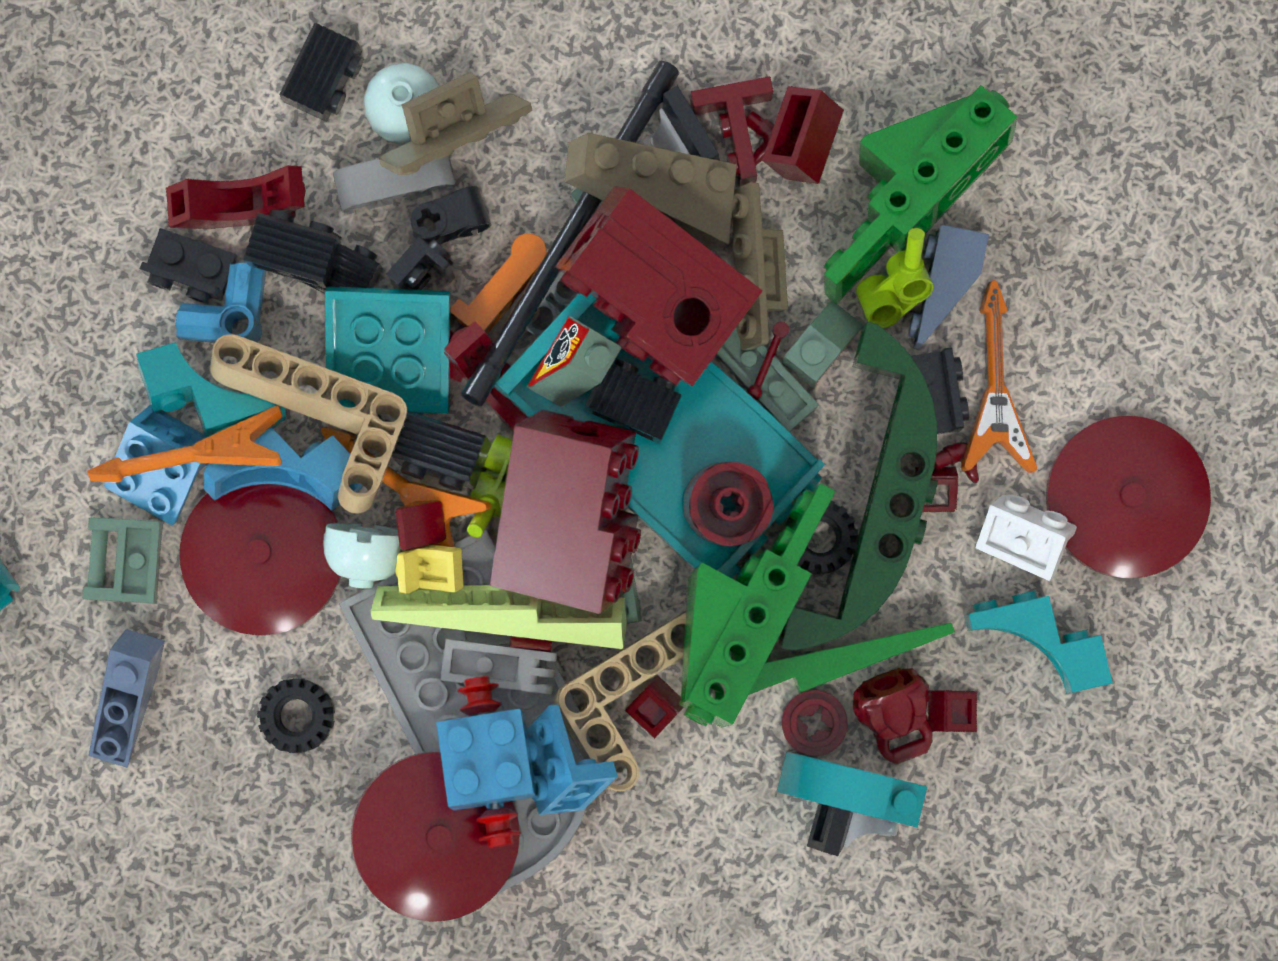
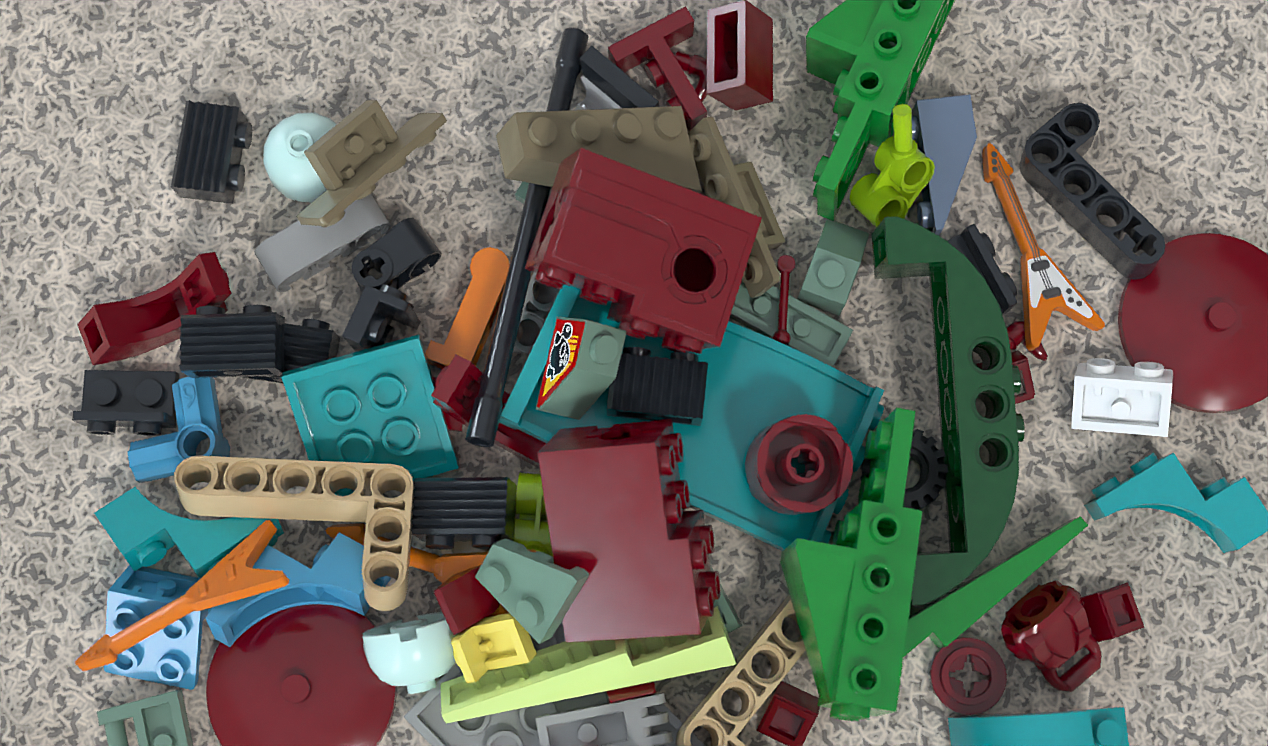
camera: 15 degrees left, 5 degrees down
(475, 531) = (530, 586): none -> sand green wing
(1067, 360) = (1098, 196): none -> black beam

